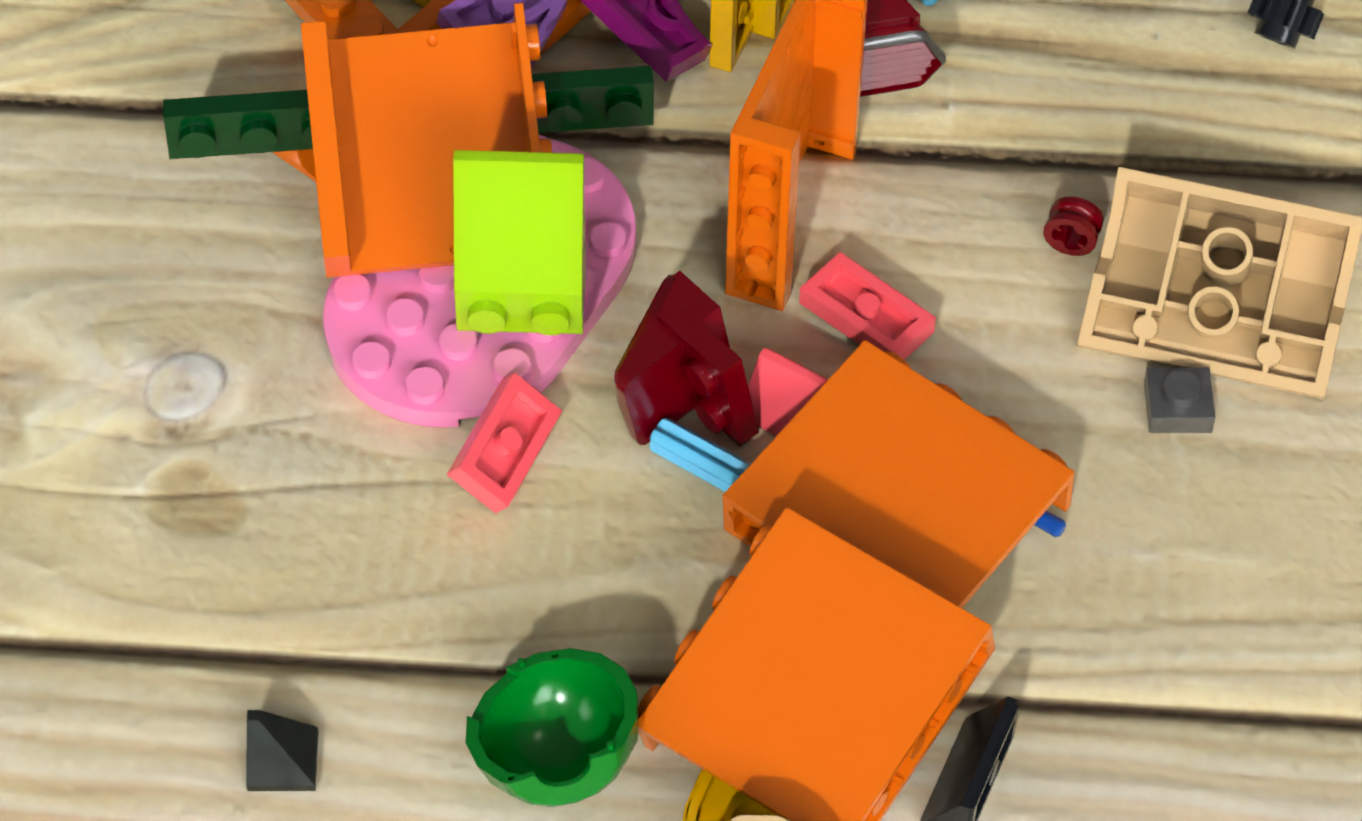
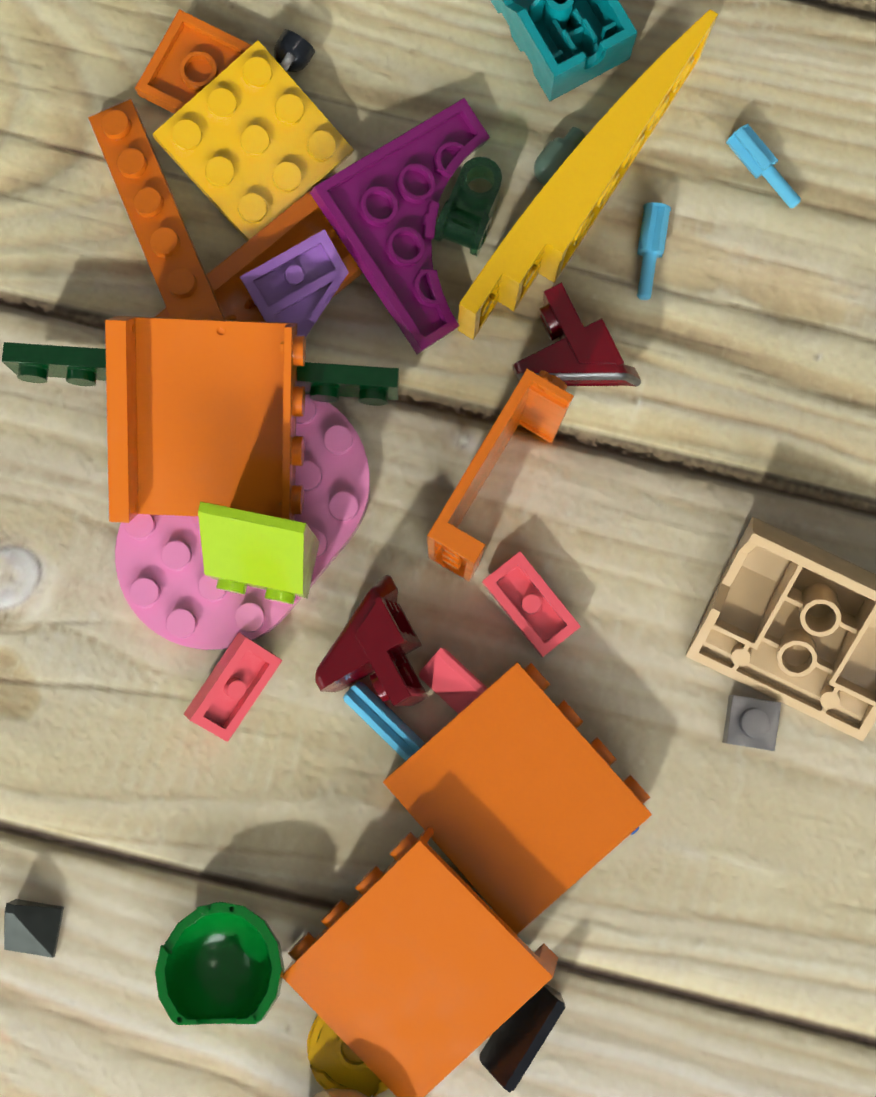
camera: 10 degrees right, 30 degrees up
(1073, 226) = (707, 550): dark red bush -> none

